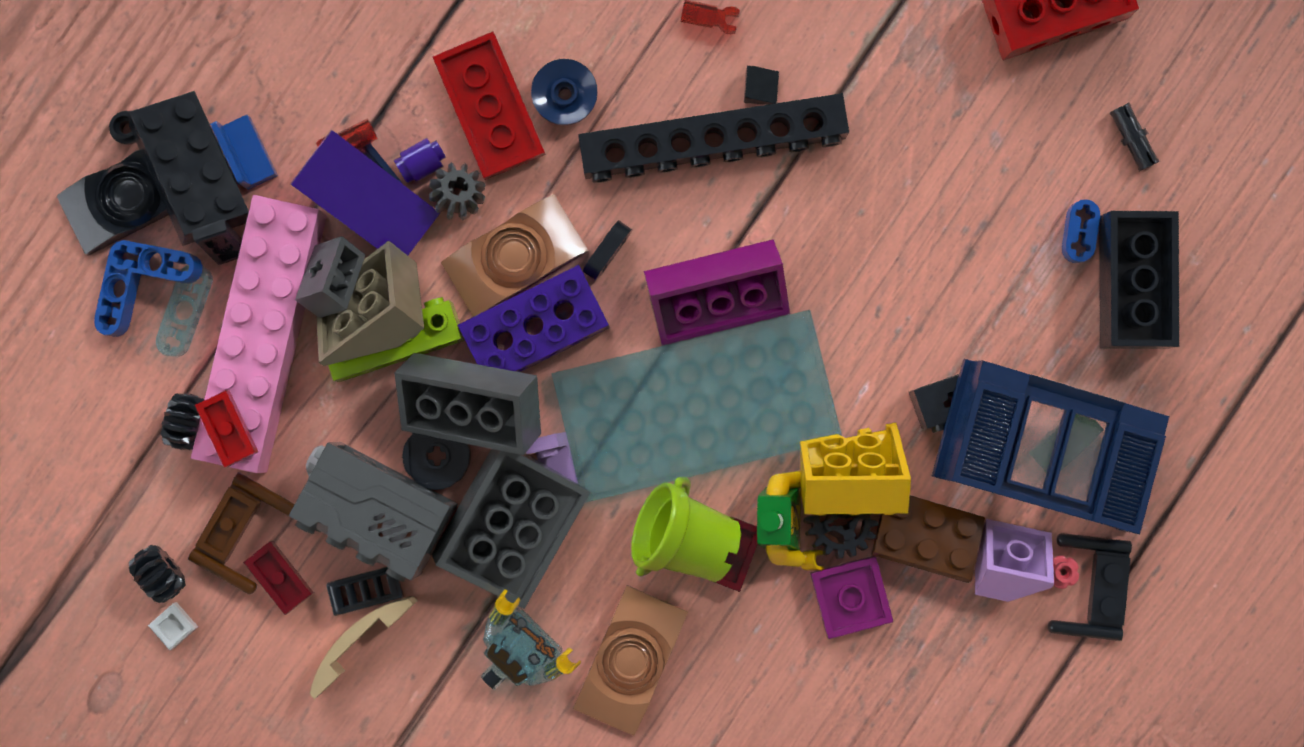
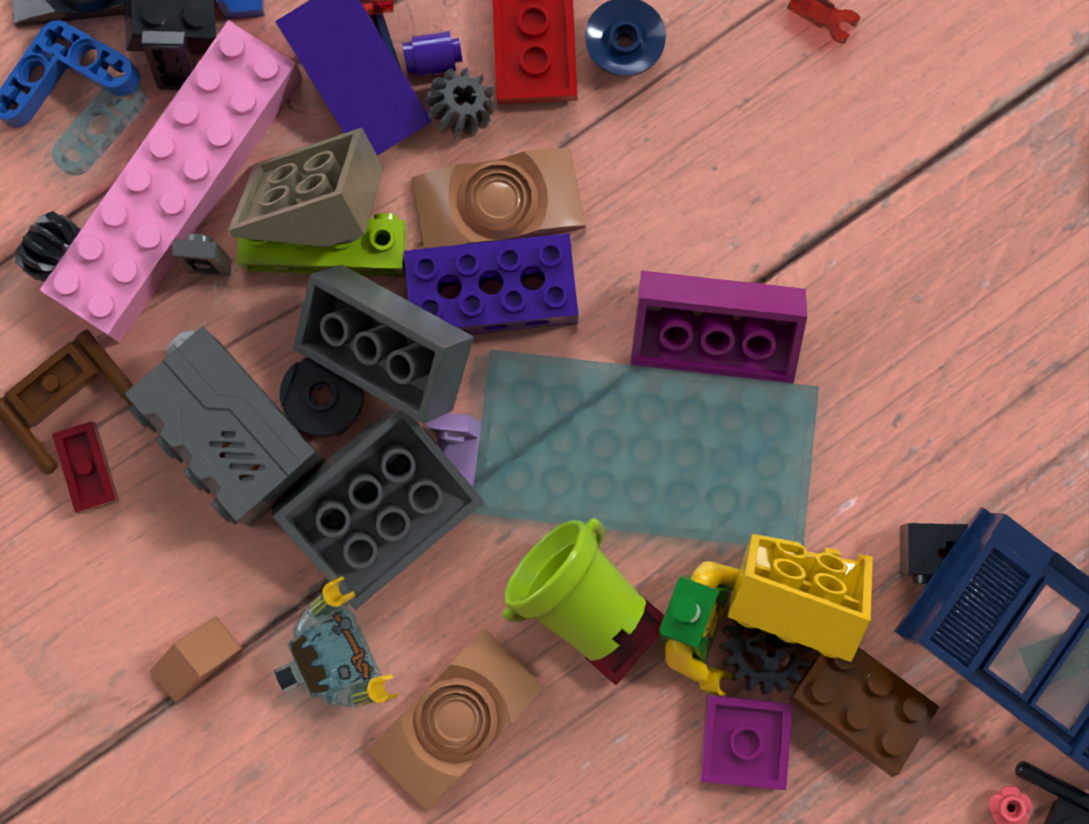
camera: 20 degrees right, 5 degrees down
(226, 428) = (93, 268): red plate -> none
(304, 384) = (201, 255): none -> dark grey plate
(329, 668) = (101, 594): tan slope -> none
(330, 277) = (279, 144): dark grey brick -> none
(336, 596) = (142, 518): black slope -> none
(418, 688) = (195, 658): none -> nougat slope
(607, 250) = (607, 232): black beam -> none
(761, 85) = (853, 112): black slope -> none
(827, 109) = (920, 164): black brick -> none
(1013, 561) = (955, 772): lavender slope -> none

